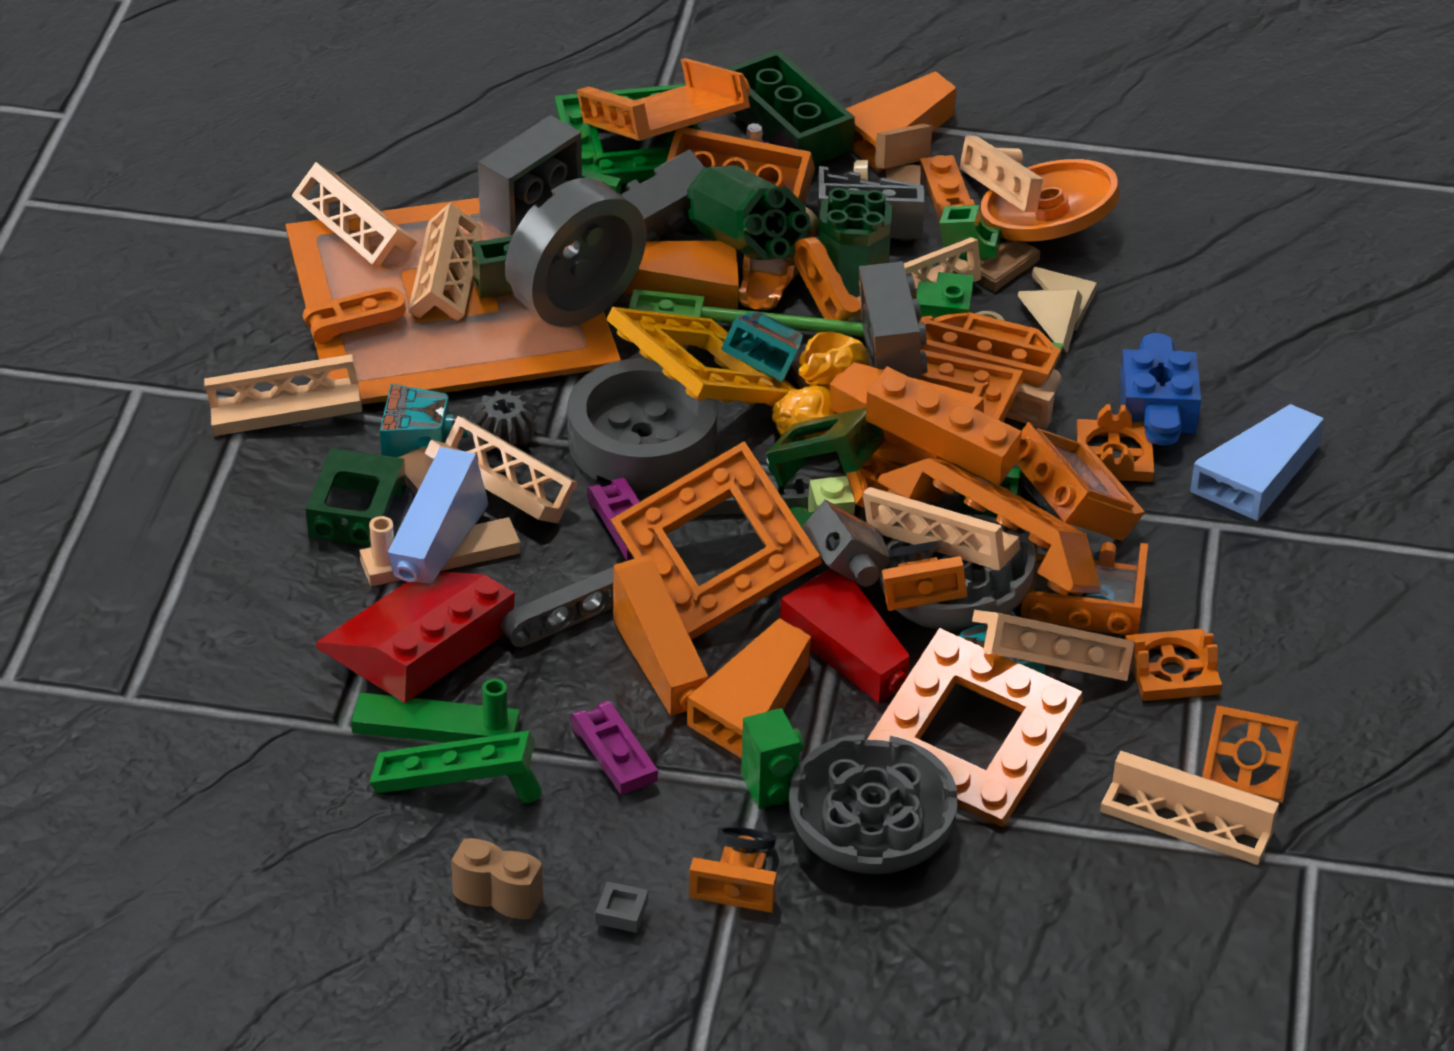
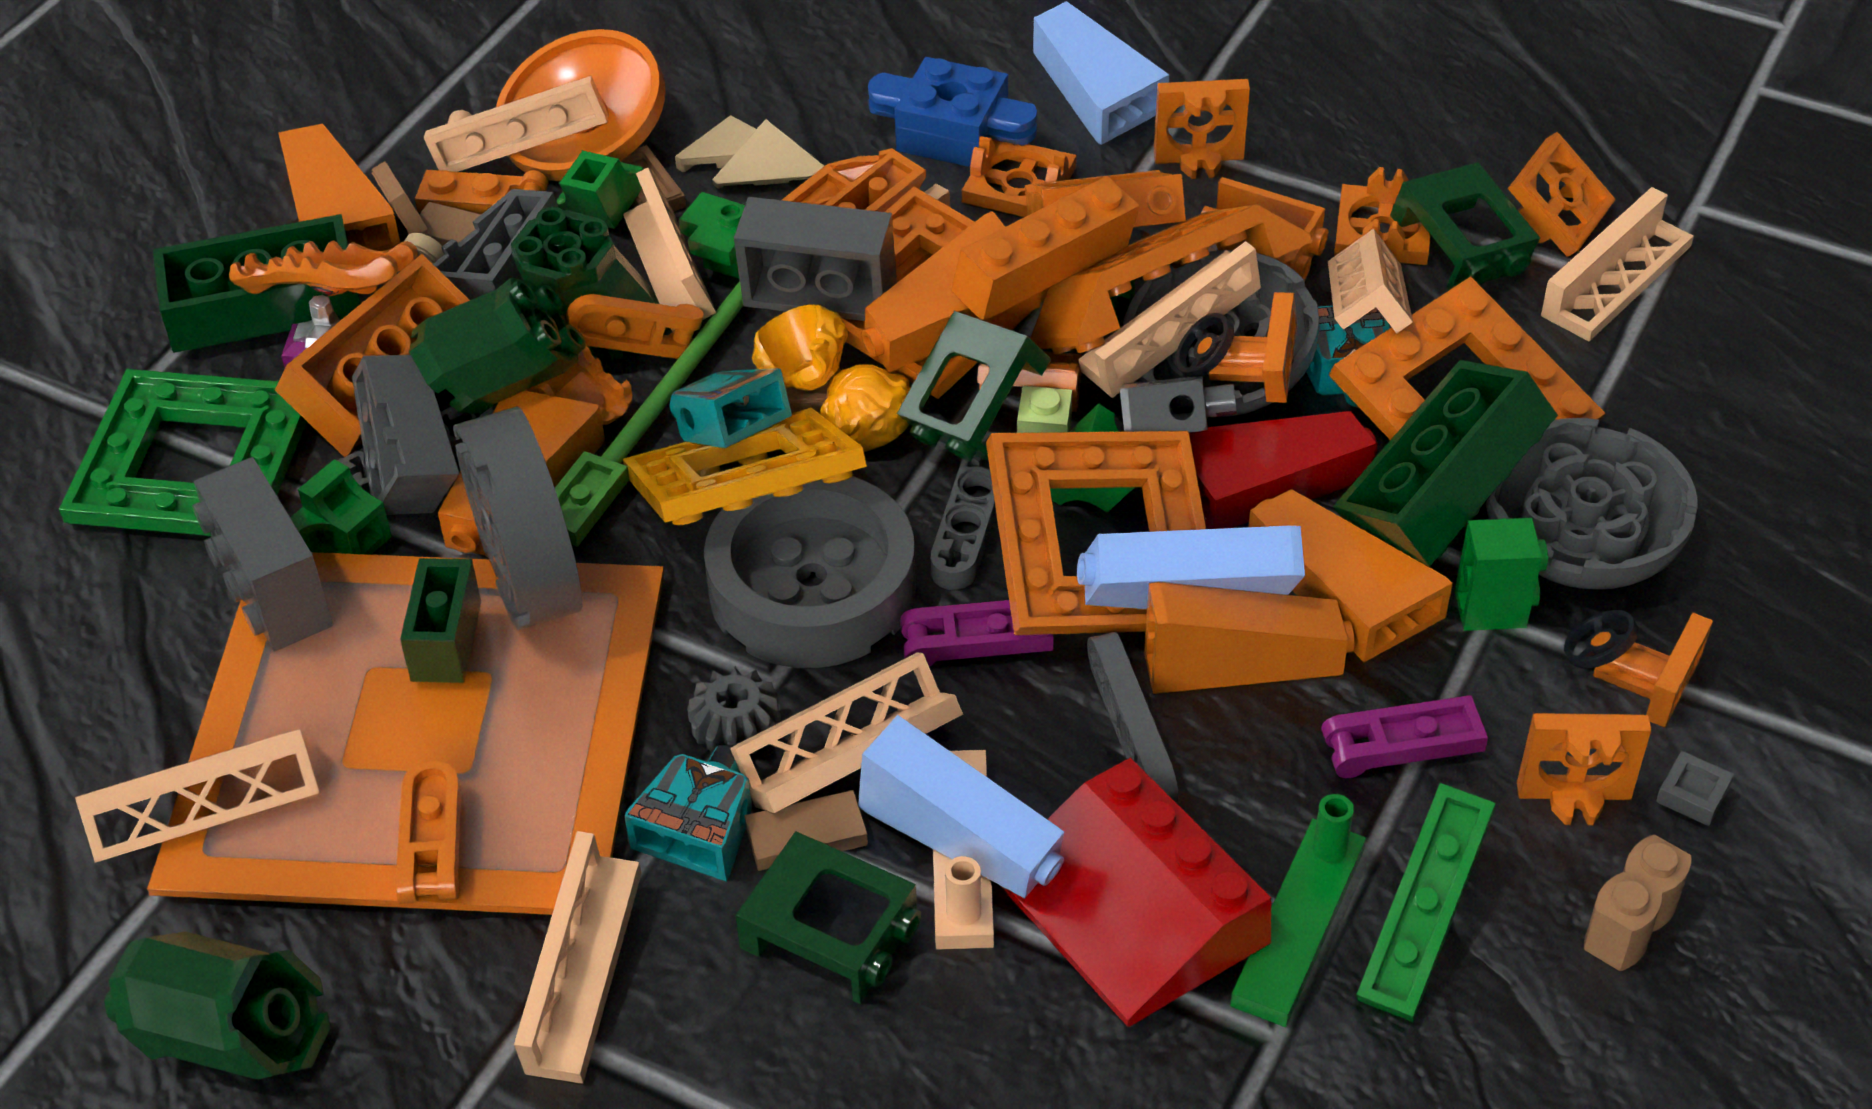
camera: 70 degrees left, 5 degrees up
(202, 267) = (218, 1005): none -> dark green brick
(440, 255) = (373, 705): light nougat fence -> none
(608, 843) = (1554, 735): none -> orange piece
(689, 588) = (1246, 559): none -> light blue slope
(707, 95) = (214, 370): orange panel -> none
(781, 118) = (327, 272): none -> orange animal
(856, 699) = (1448, 459): none -> dark green brick
(1190, 669) = (1455, 190): none -> dark green window
(1201, 543) = (1199, 97): none -> orange piece

